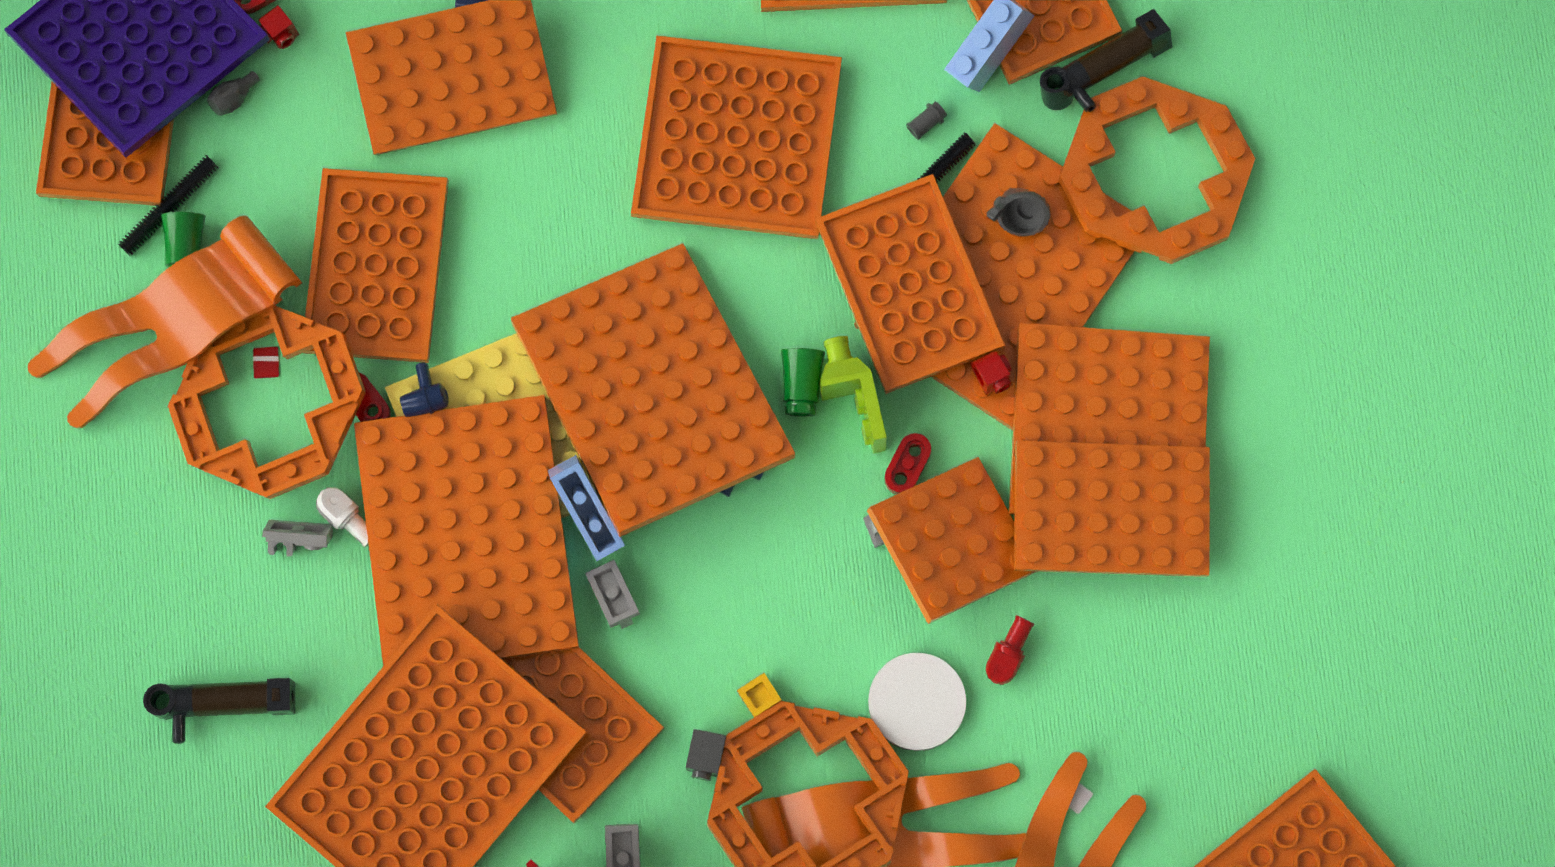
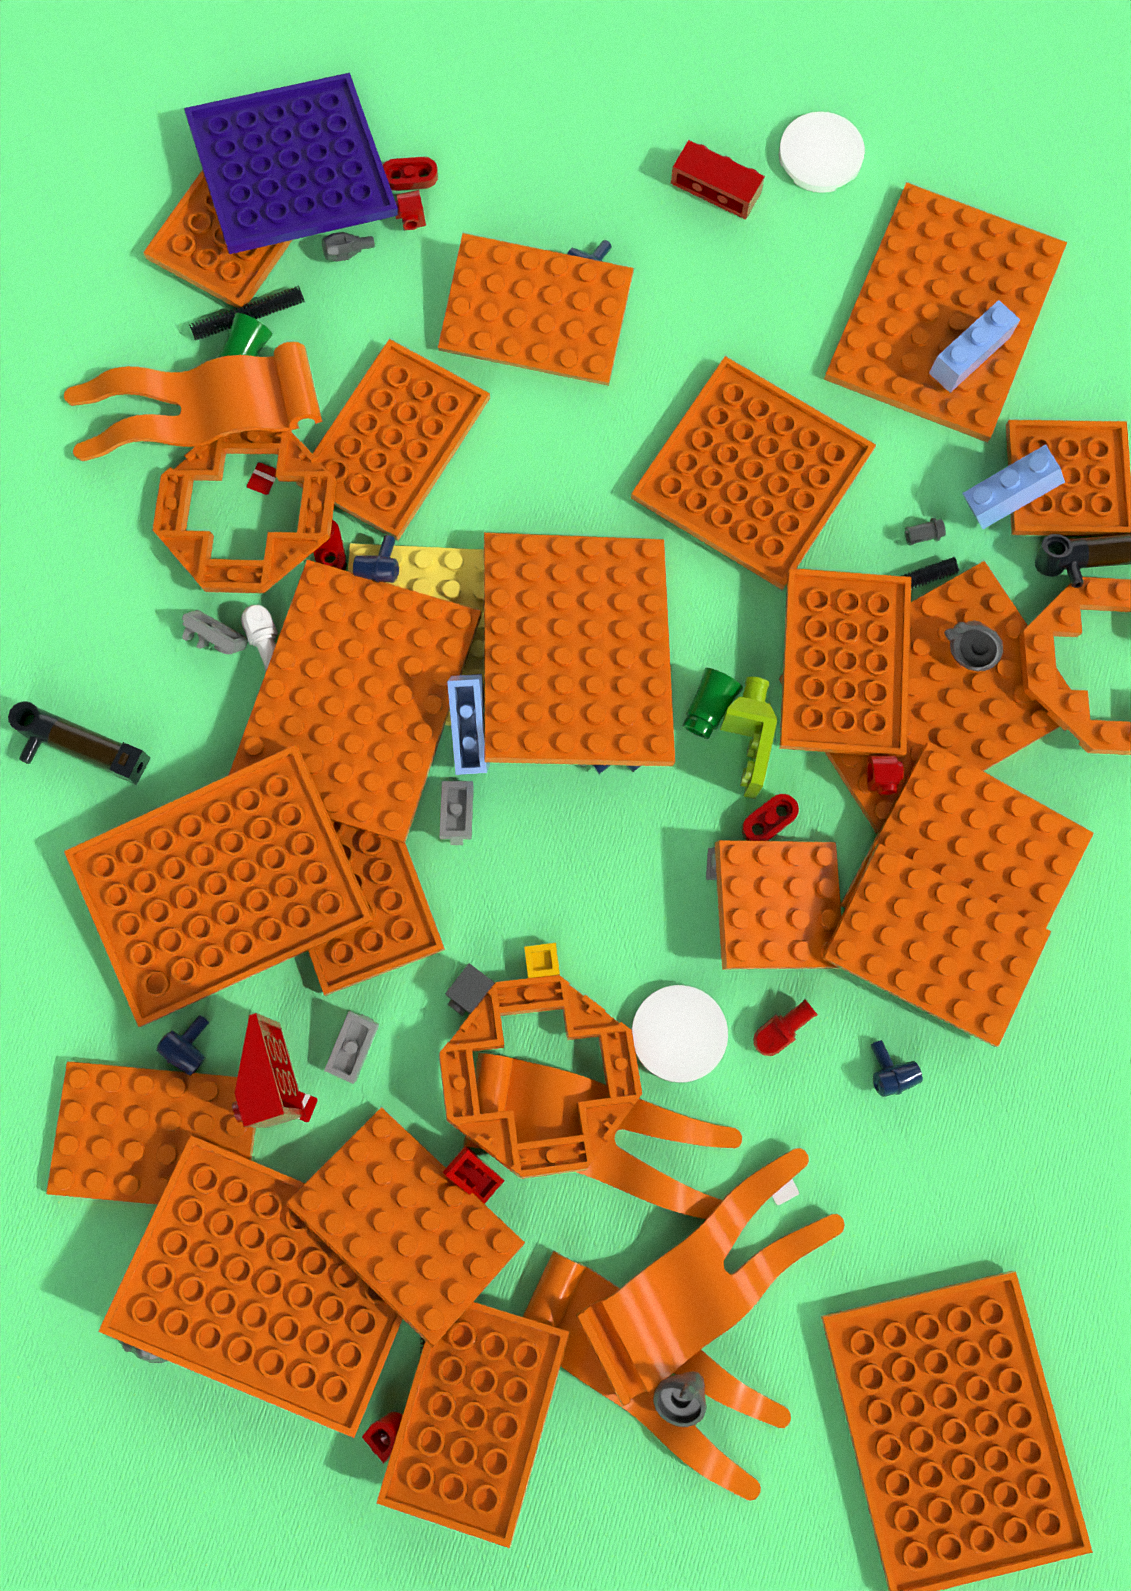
camera: 20 degrees right, 0 degrees up
(1127, 649) = (893, 1078): none -> dark blue piece

